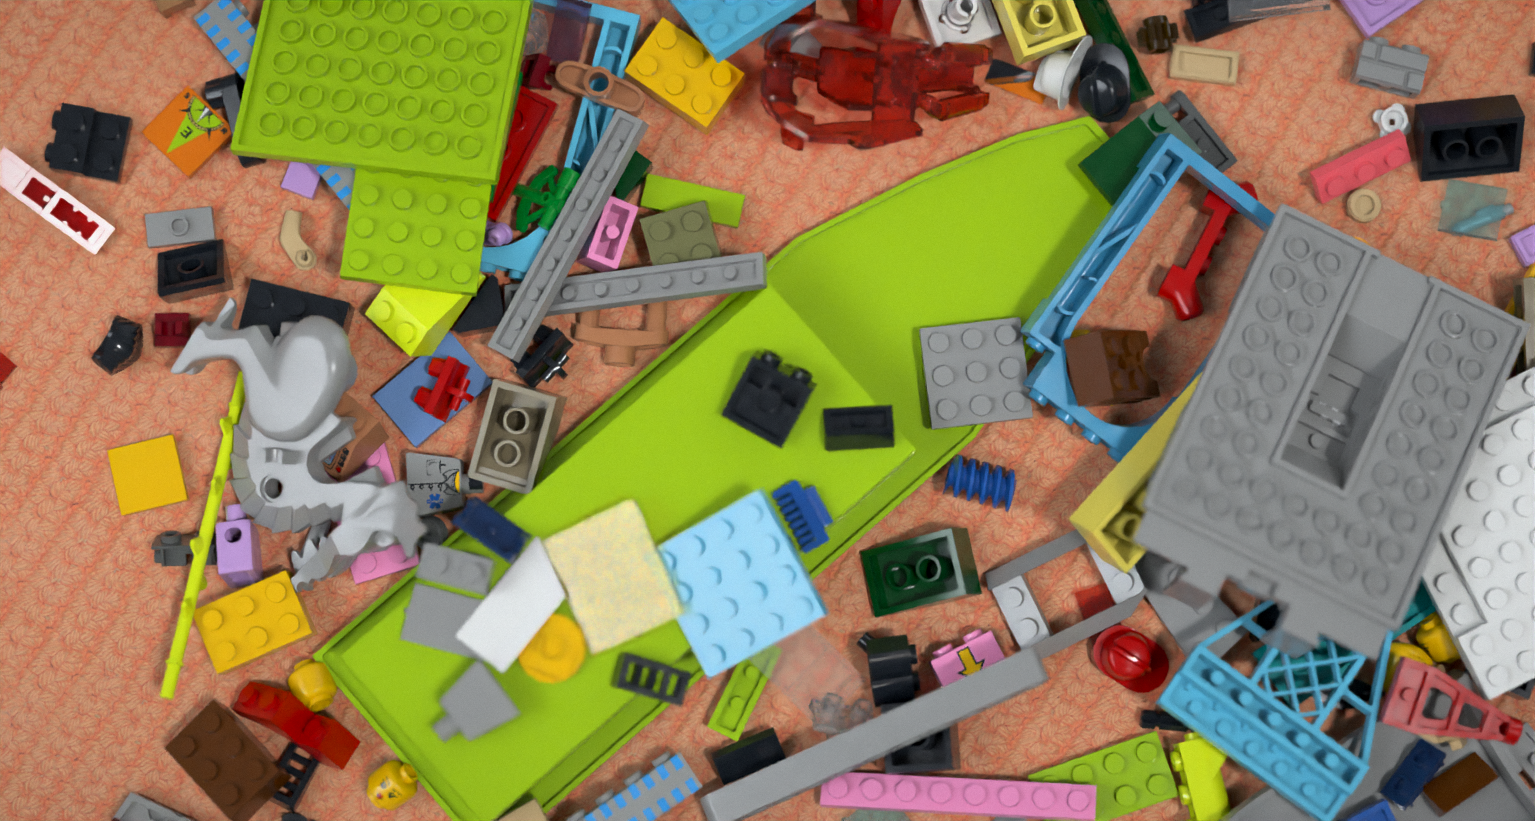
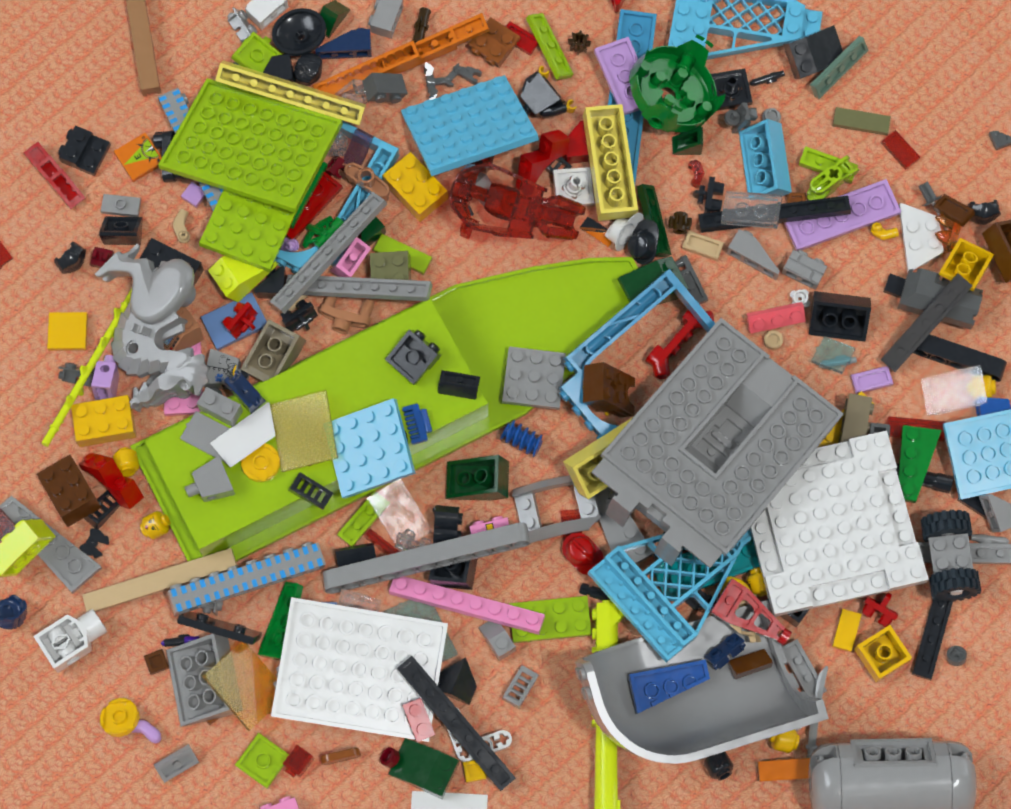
camera: 15 degrees right, 10 degrees down
(789, 726) = (380, 543): none -> clear red tile
(1292, 60) = (749, 251): none -> light grey slope

